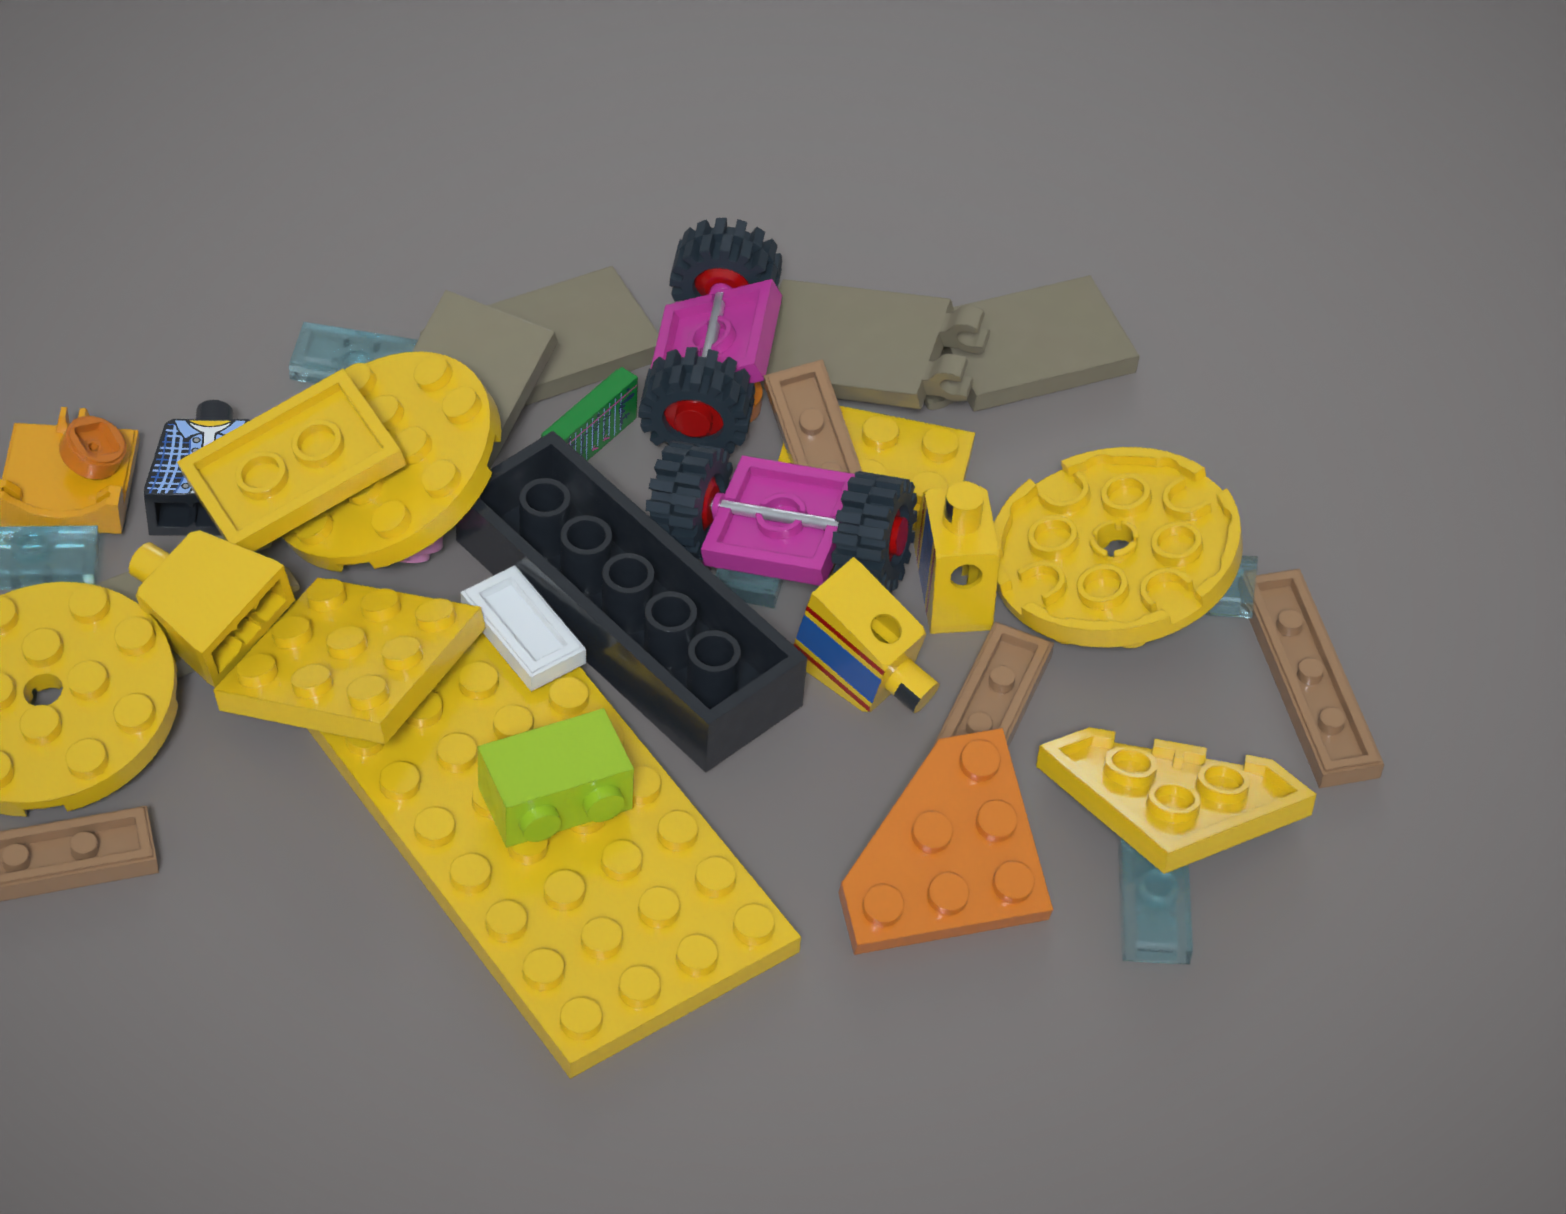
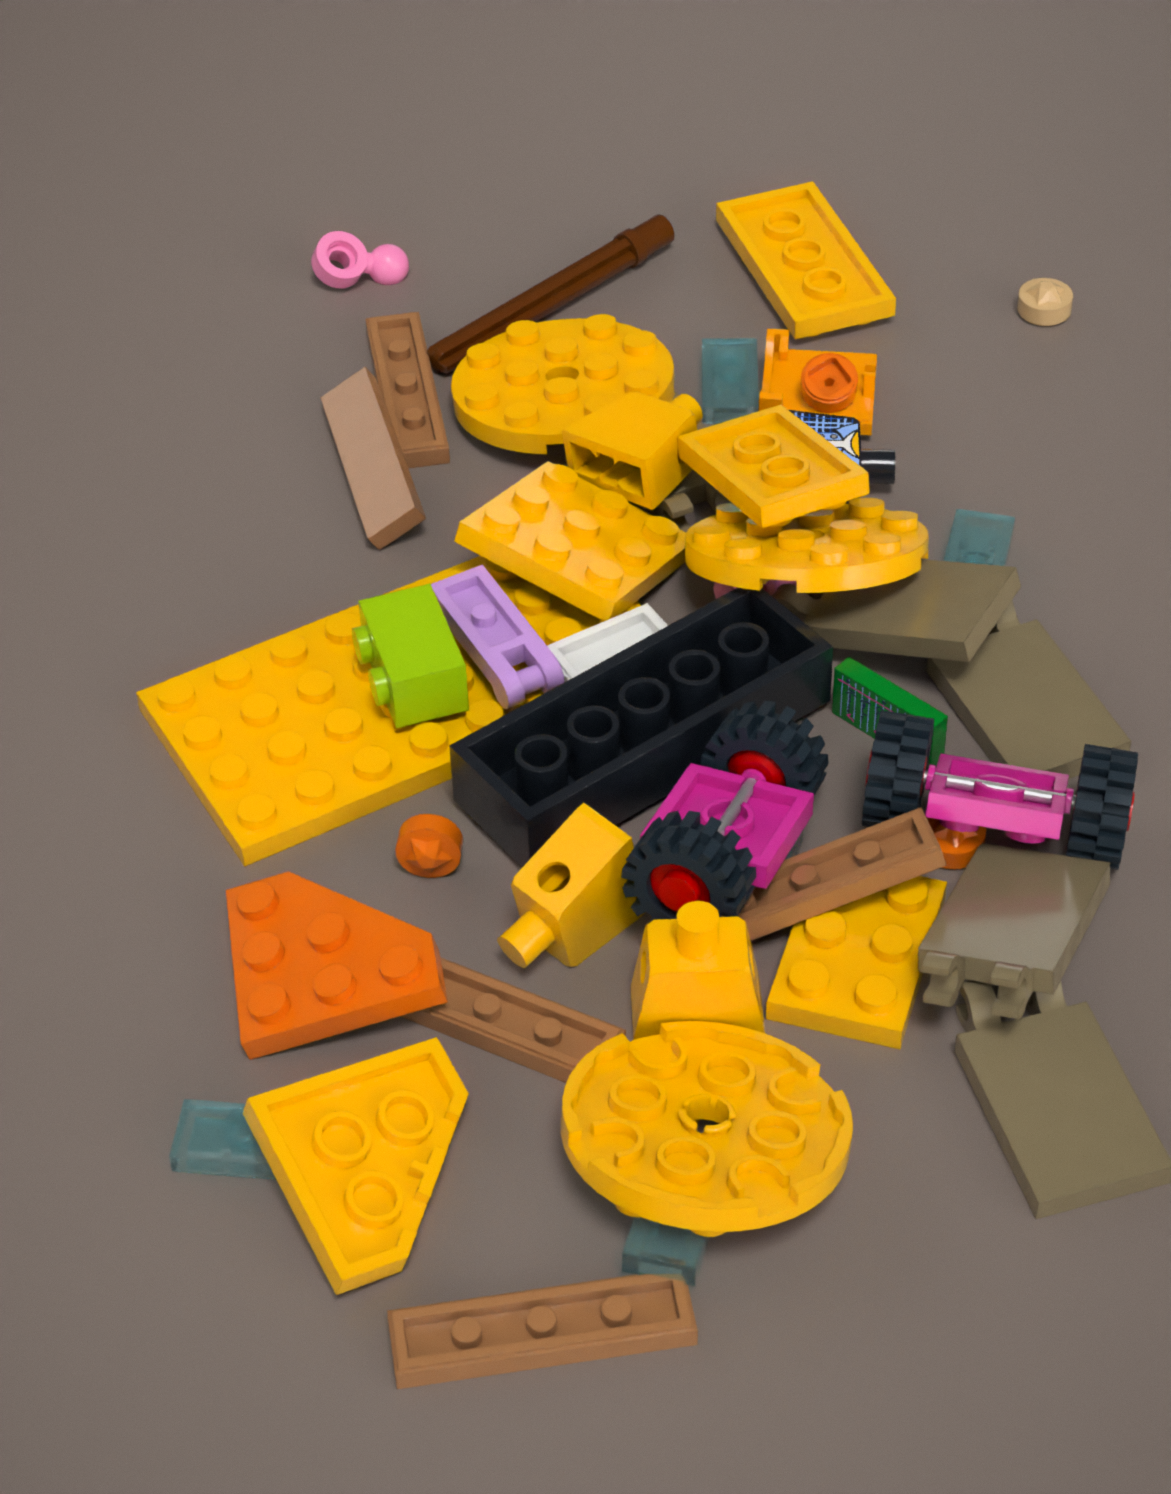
camera: 100 degrees right, 5 degrees down
(162, 876) = (372, 459): none -> medium nougat tile
(508, 710) = (497, 636): none -> lavender plate
(791, 775) = (429, 845): none -> orange tile

